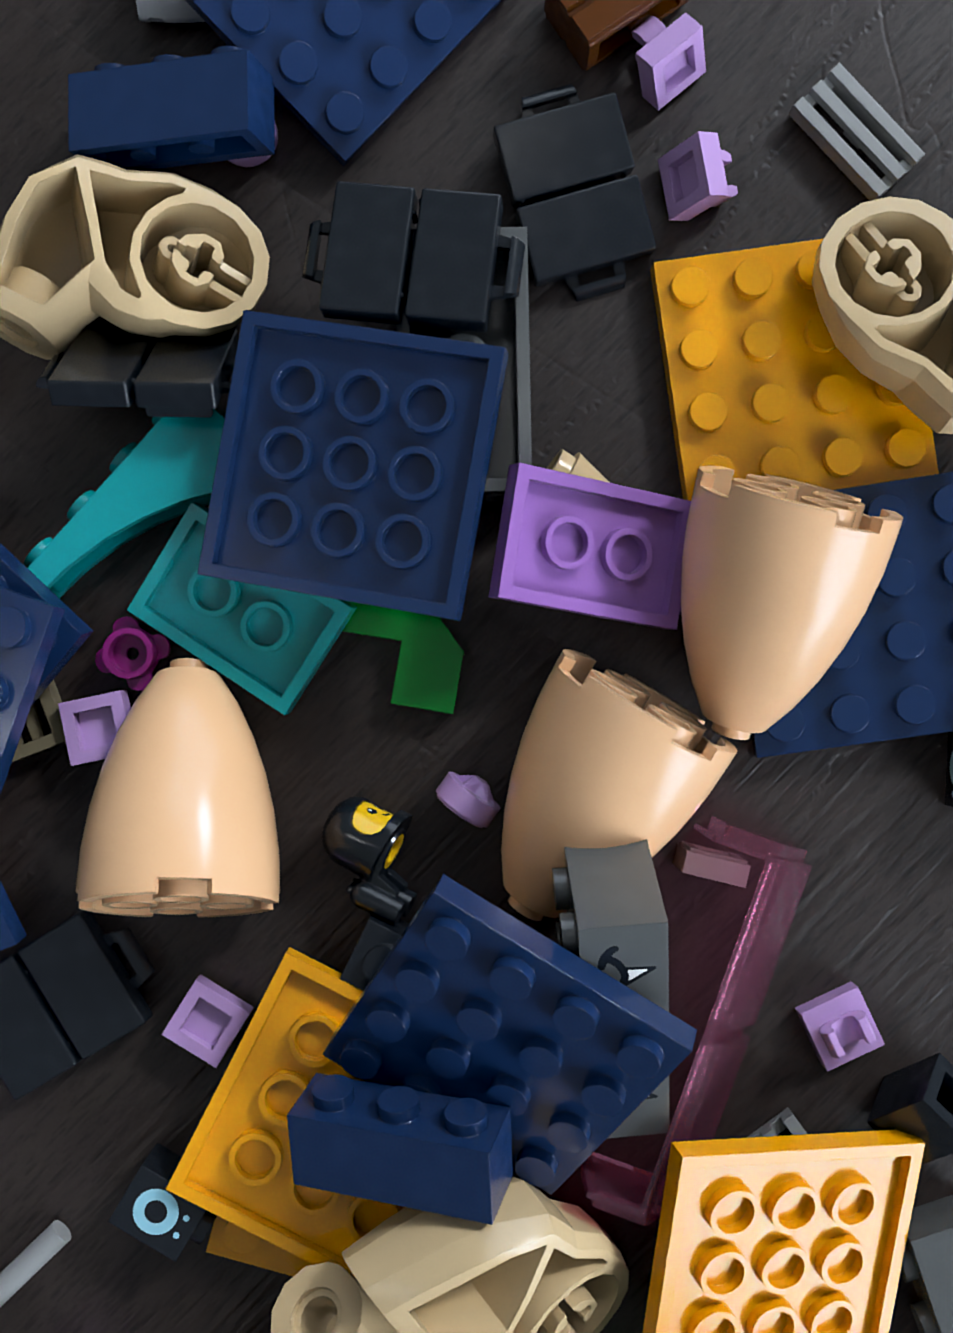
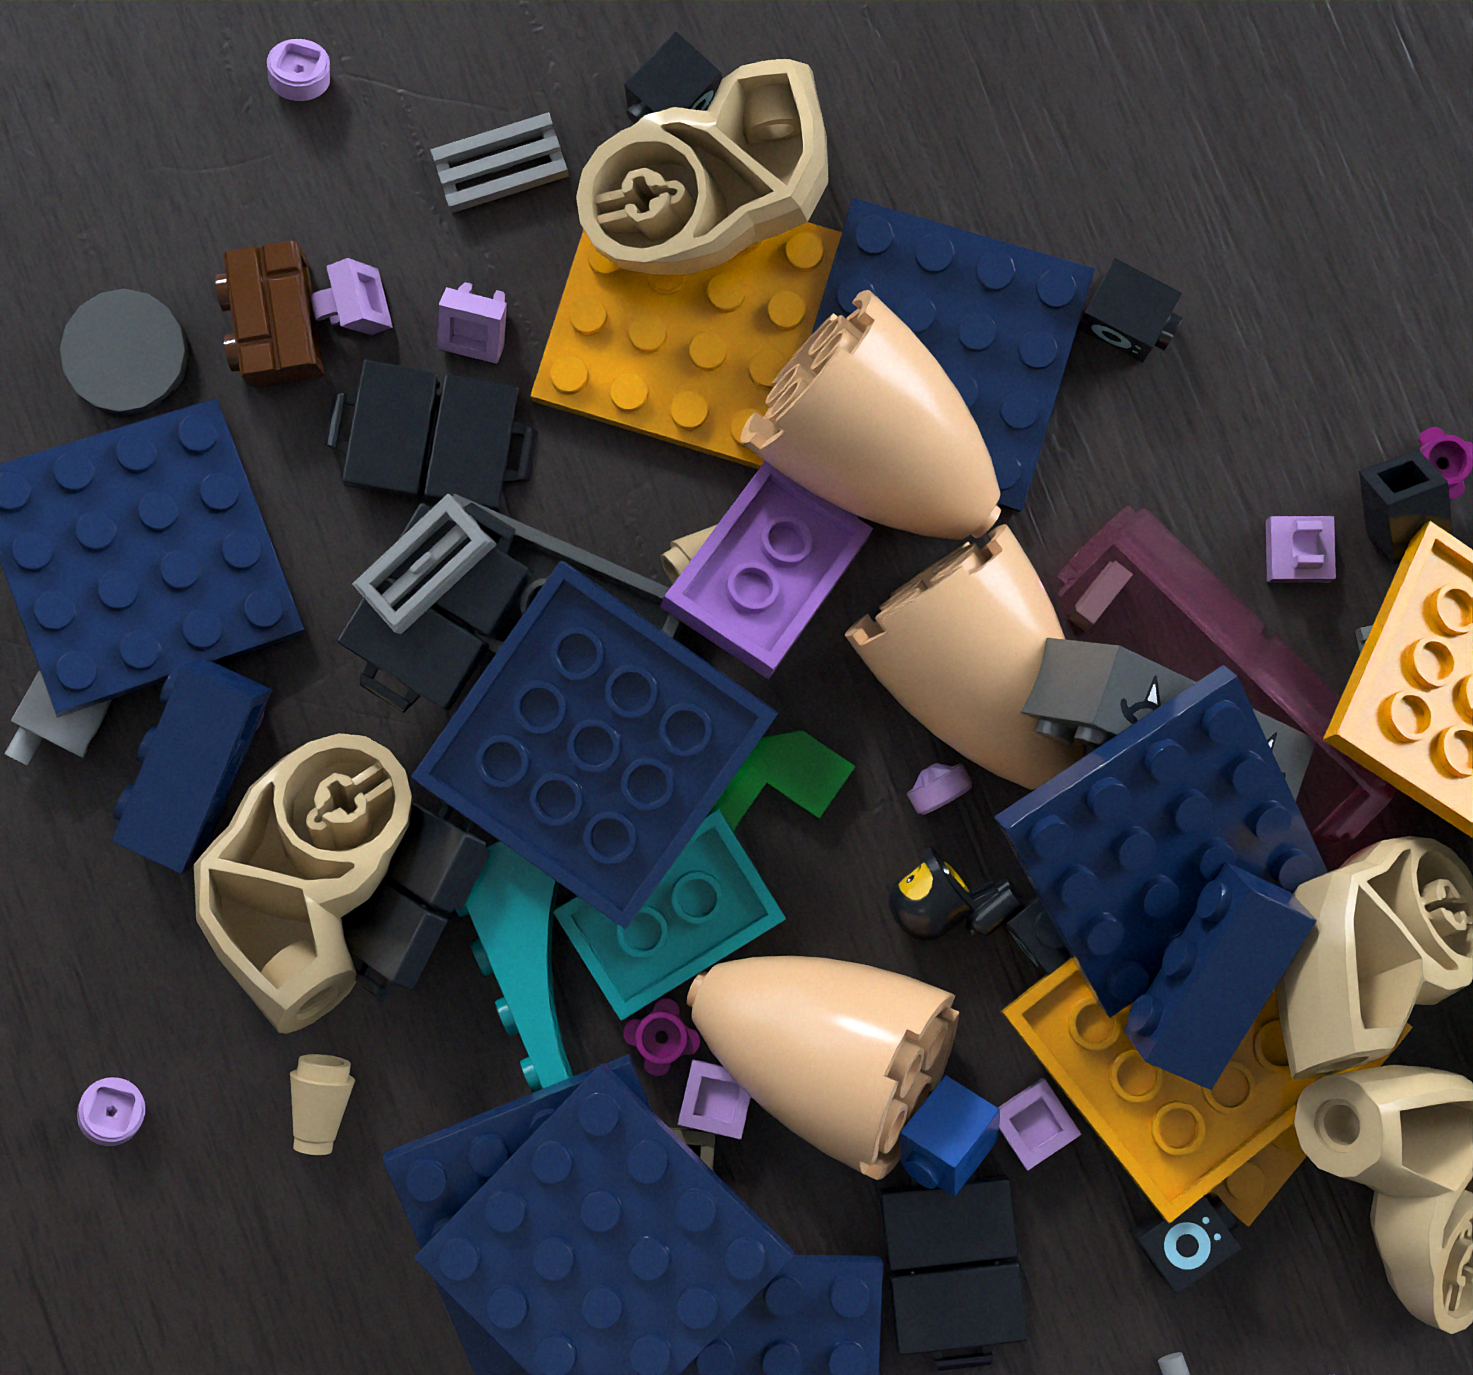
camera: 60 degrees left, 5 degrees down
(154, 951) = (948, 1137): none -> blue brick
(433, 246) = (440, 582): none -> light grey tile

